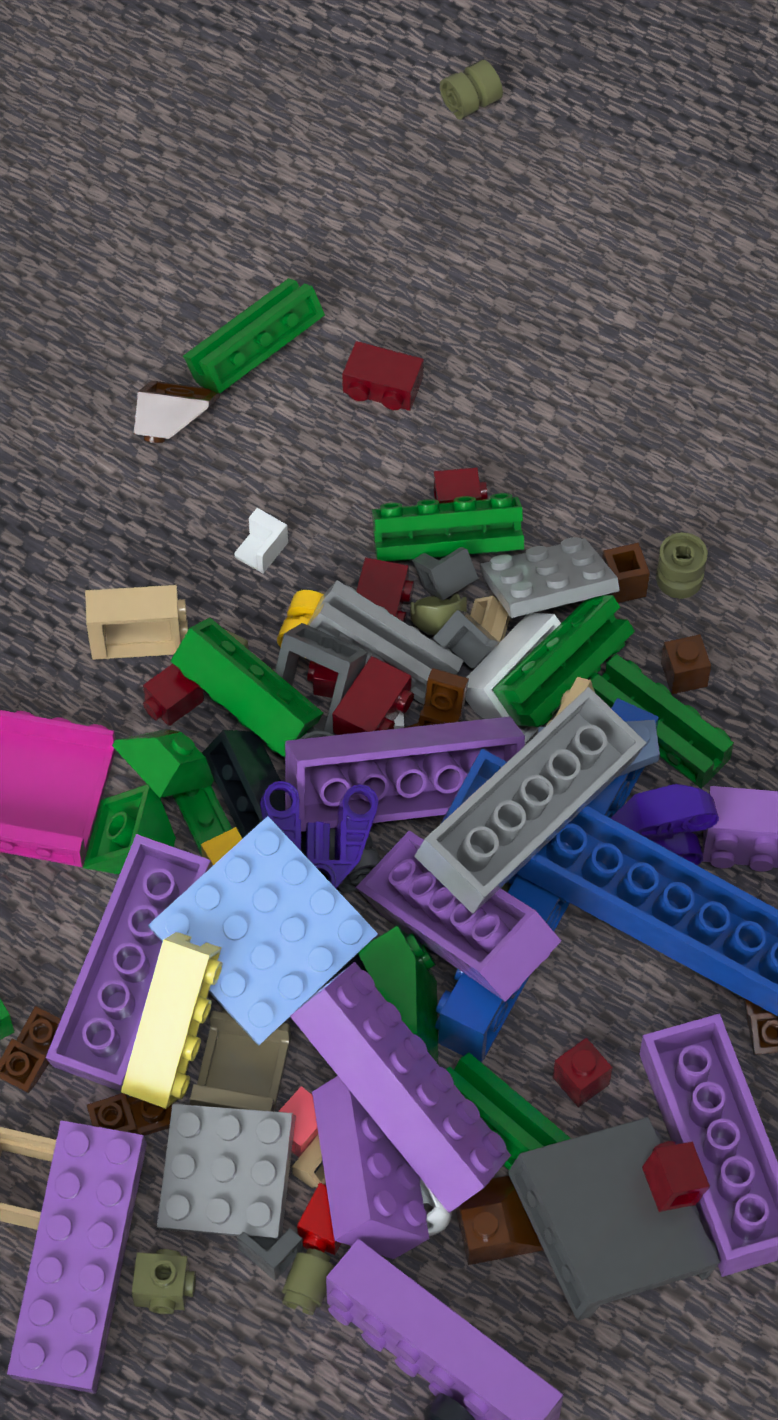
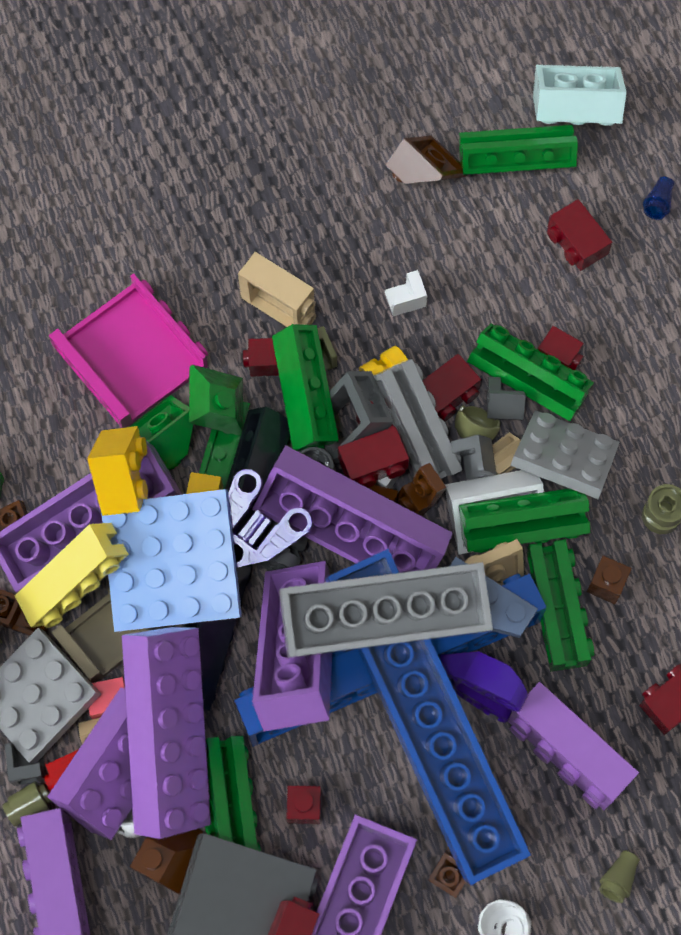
camera: 40 degrees right, 10 degrees up
(141, 867) = (116, 468): none -> yellow brick
(272, 245) = (579, 94): none -> light aqua brick
(405, 980) = (229, 668): green slope -> none
(430, 296) = (658, 201): none -> clear blue cone
(631, 569) = (621, 487): reddish brown brick -> none

